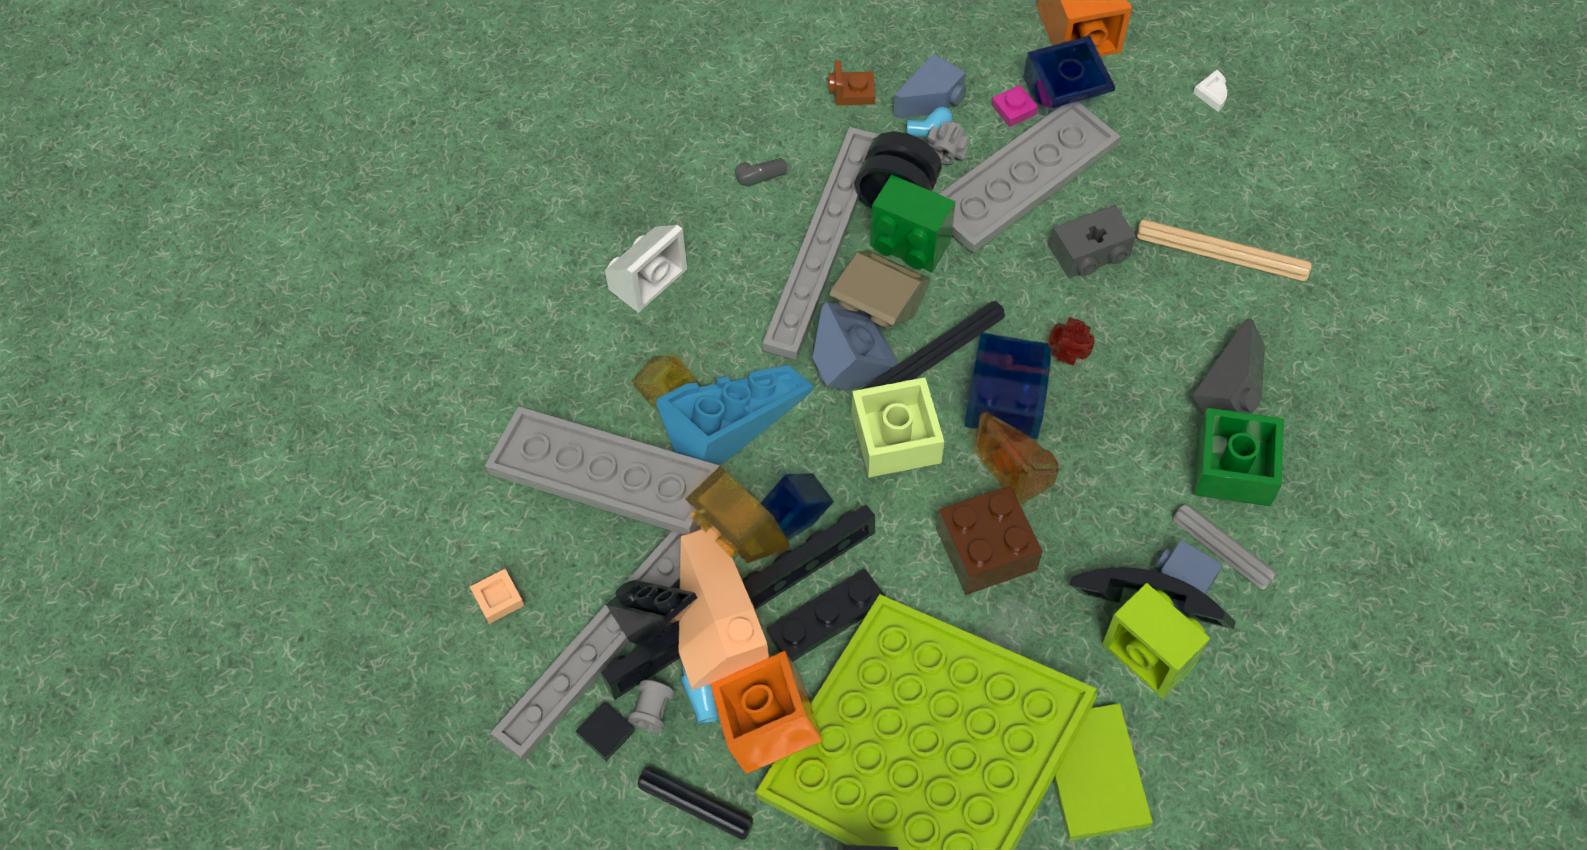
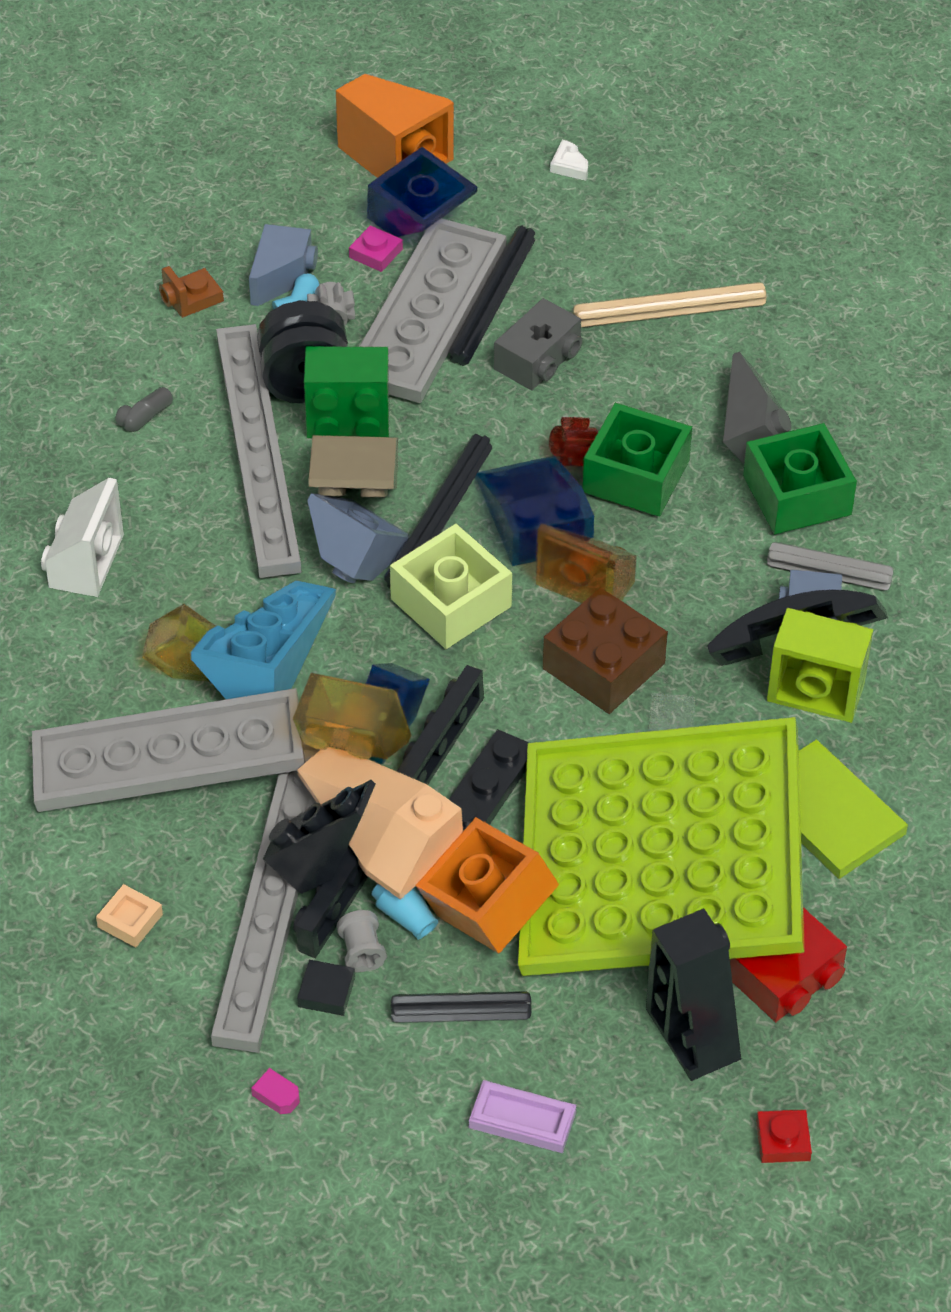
camera: 30 degrees left, 10 degrees down
(515, 804) = (276, 1092): none -> dark pink piece
(1082, 183) = (492, 296): none -> black axle
(1111, 380) = (637, 459): none -> green brick

